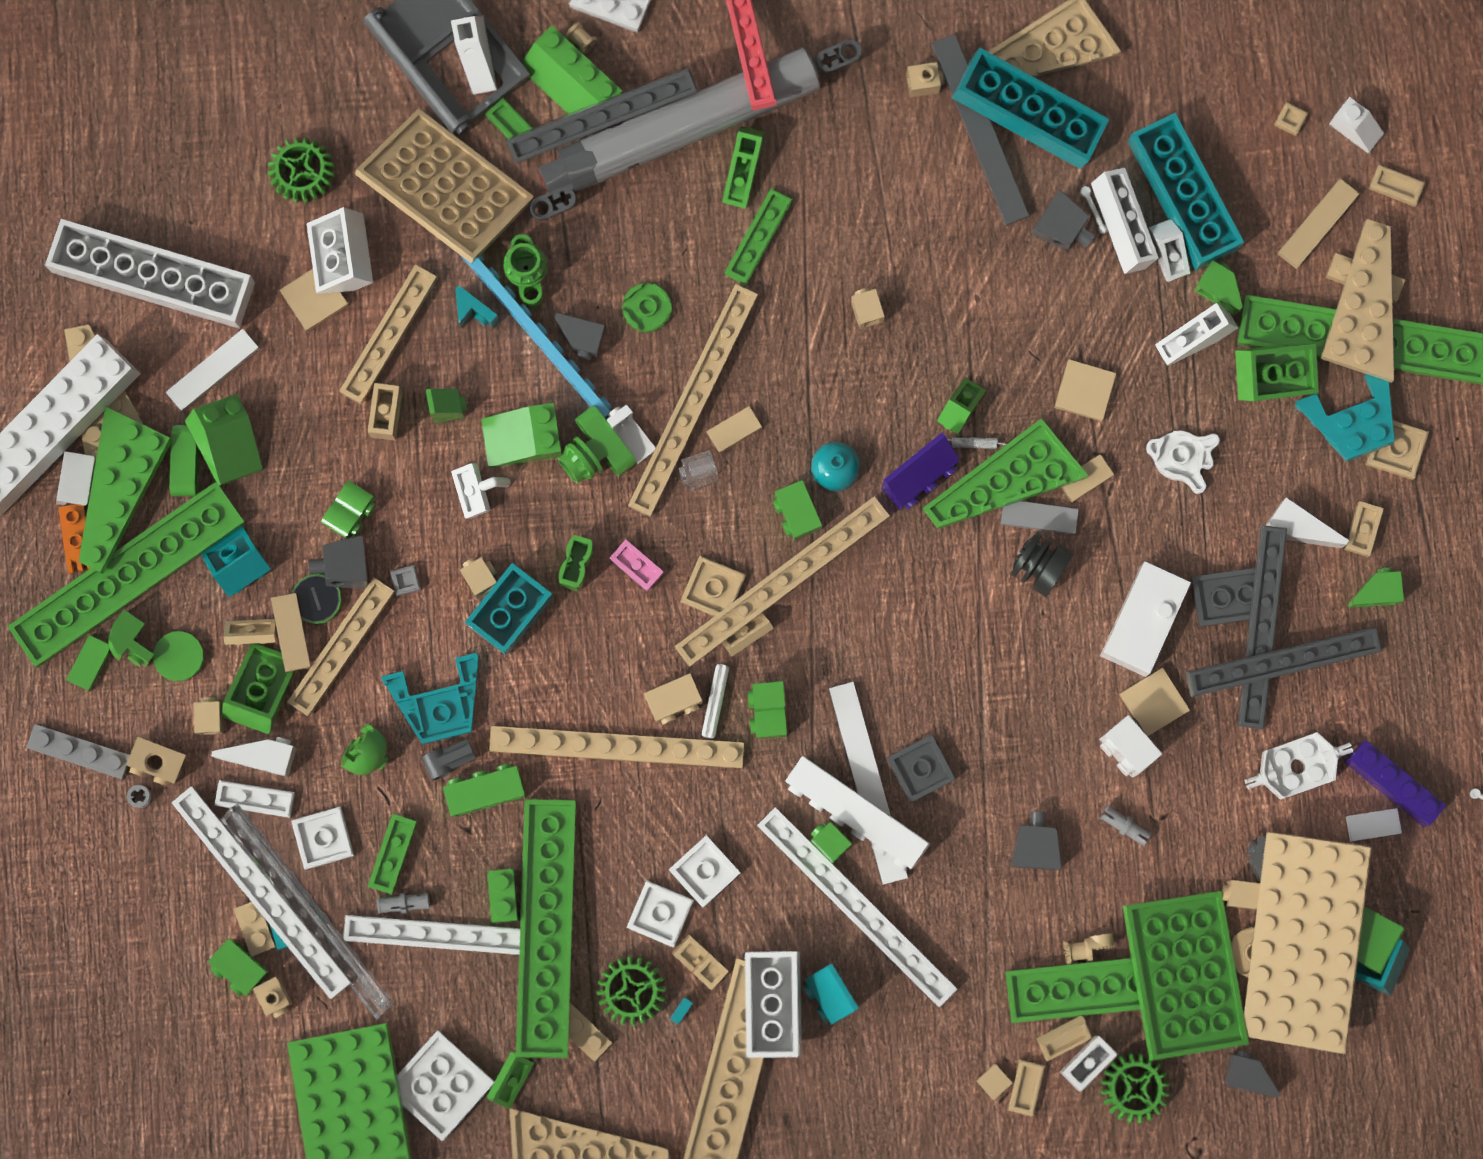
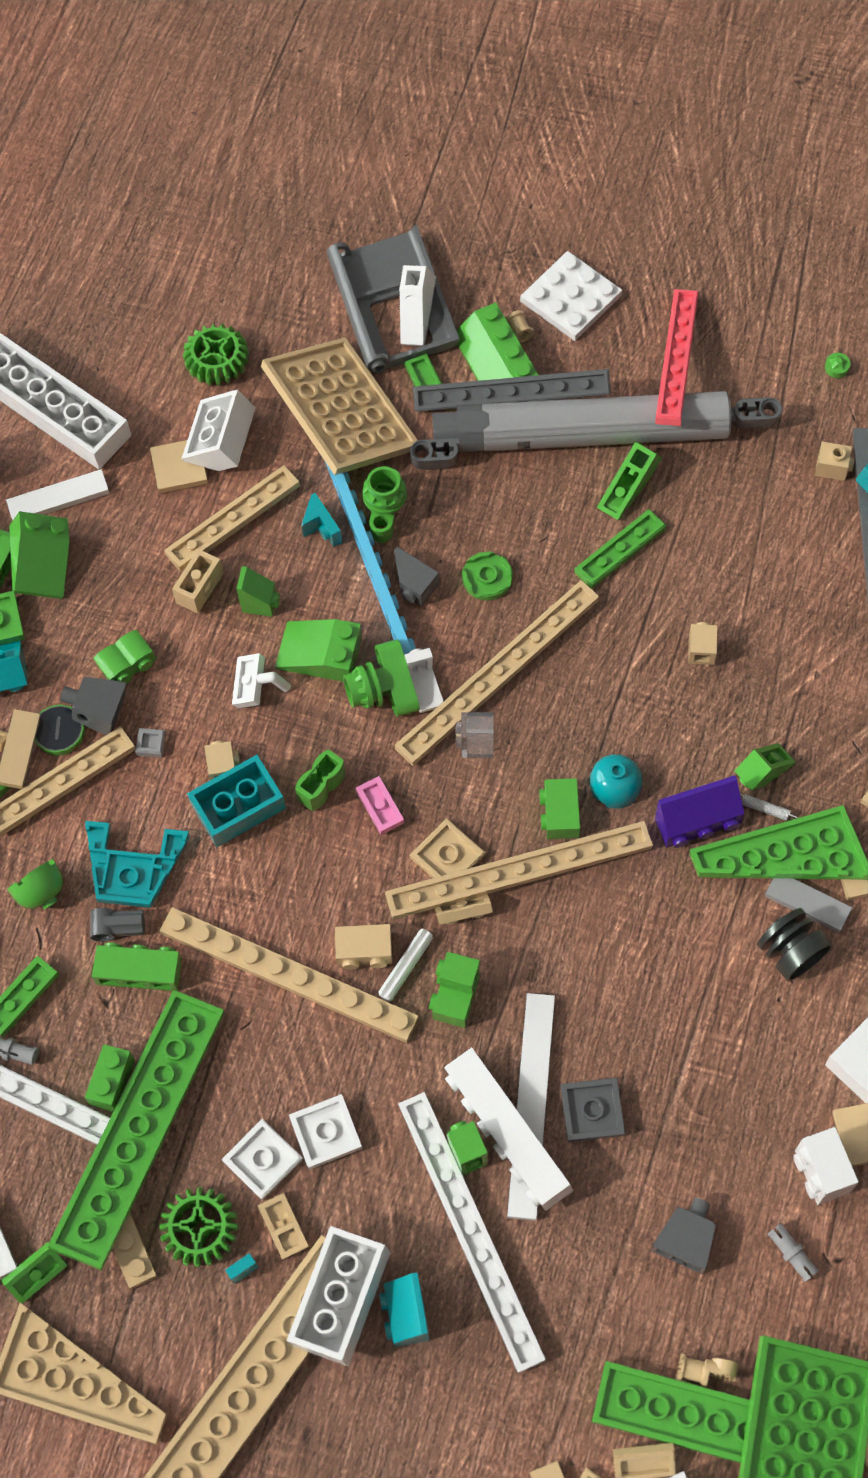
camera: 25 degrees right, 15 degrees down
(734, 429) = (527, 713): tan tile -> none

